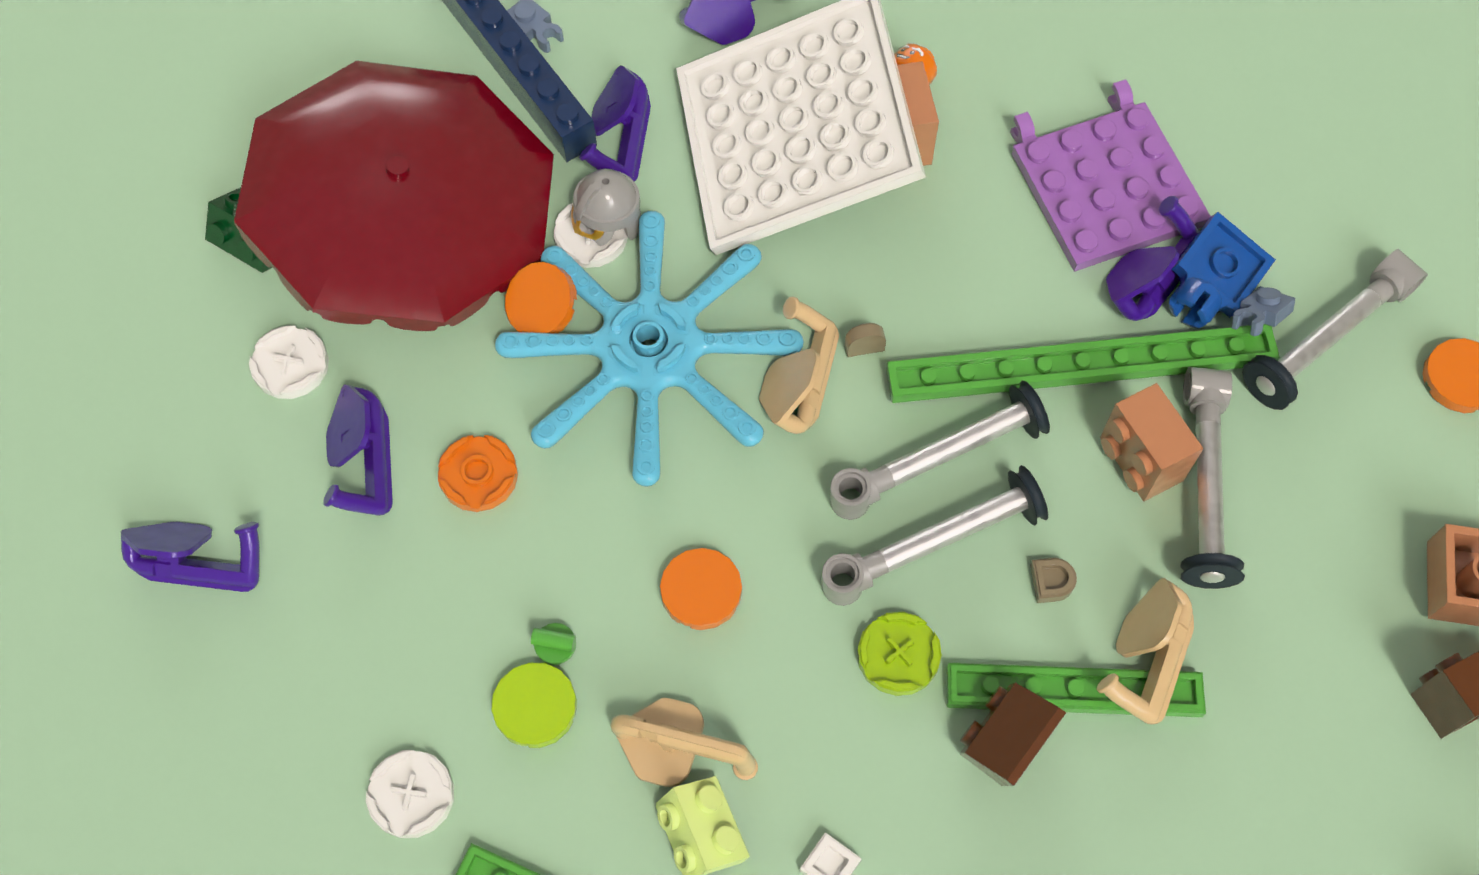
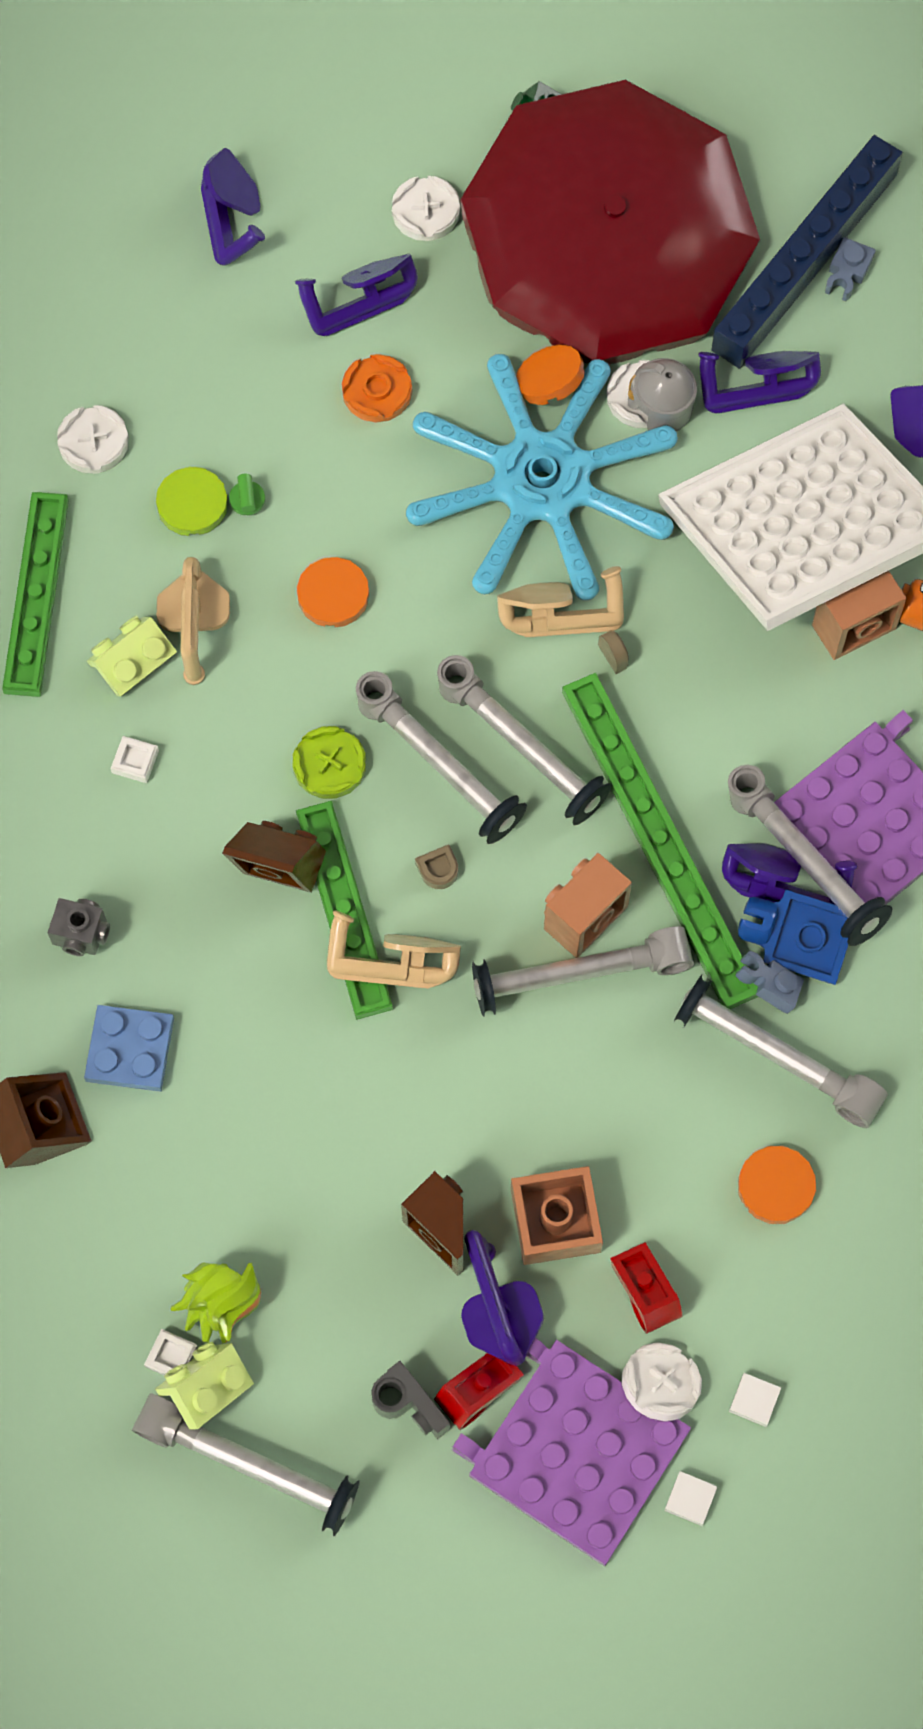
camera: 70 degrees right, 5 degrees up
(1234, 203) = (863, 918): none -> piece

